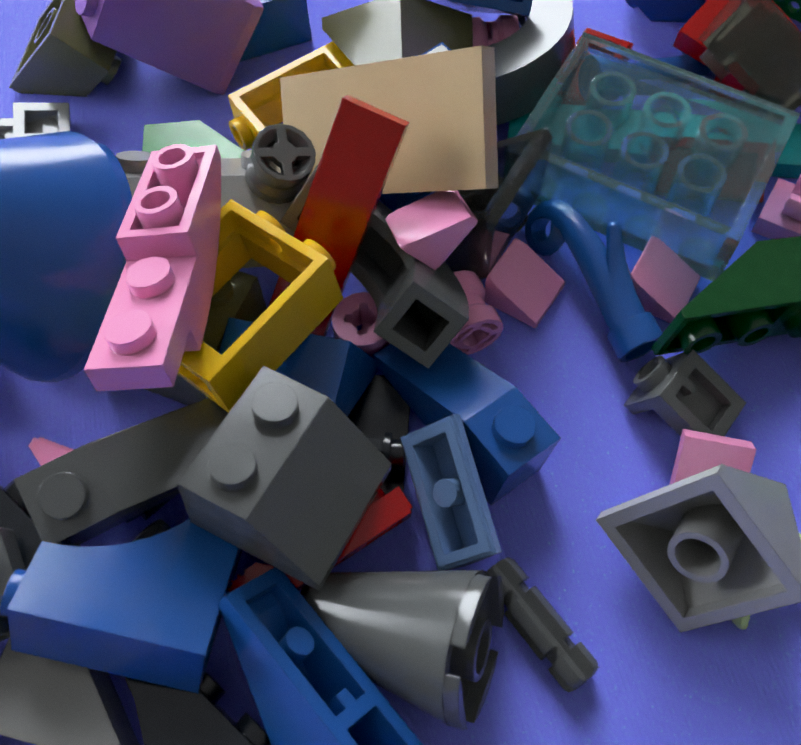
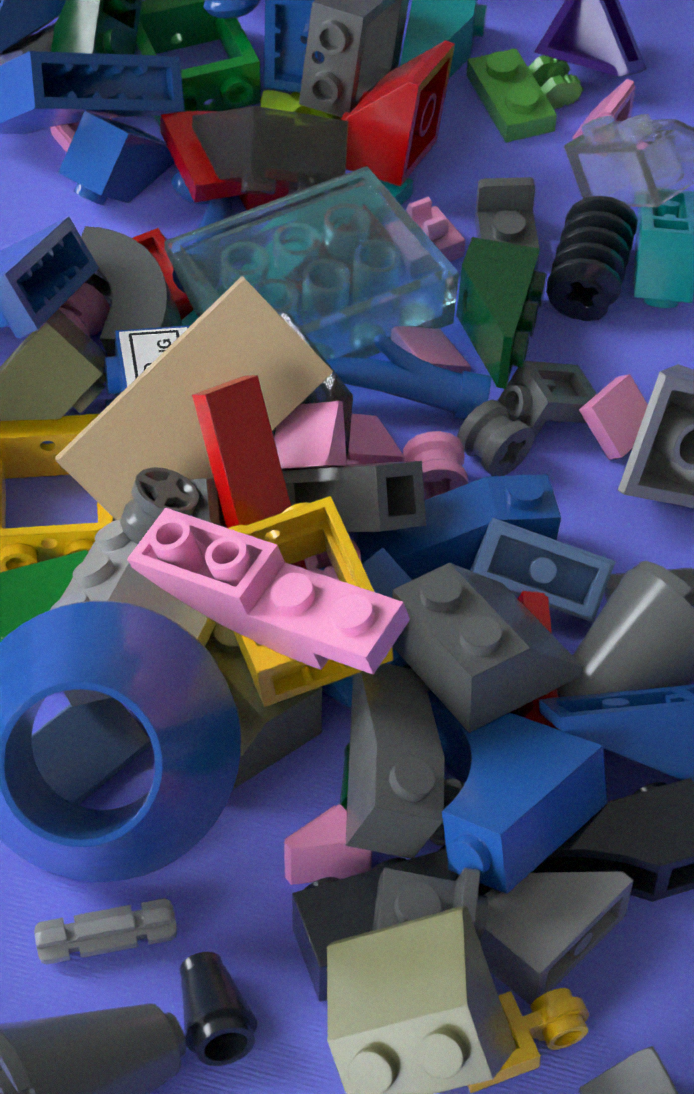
camera: 65 degrees left, 10 degrees down
(528, 350) = (441, 461): none -> bright pink wheel
(600, 378) = (495, 438): none -> dark grey wheel

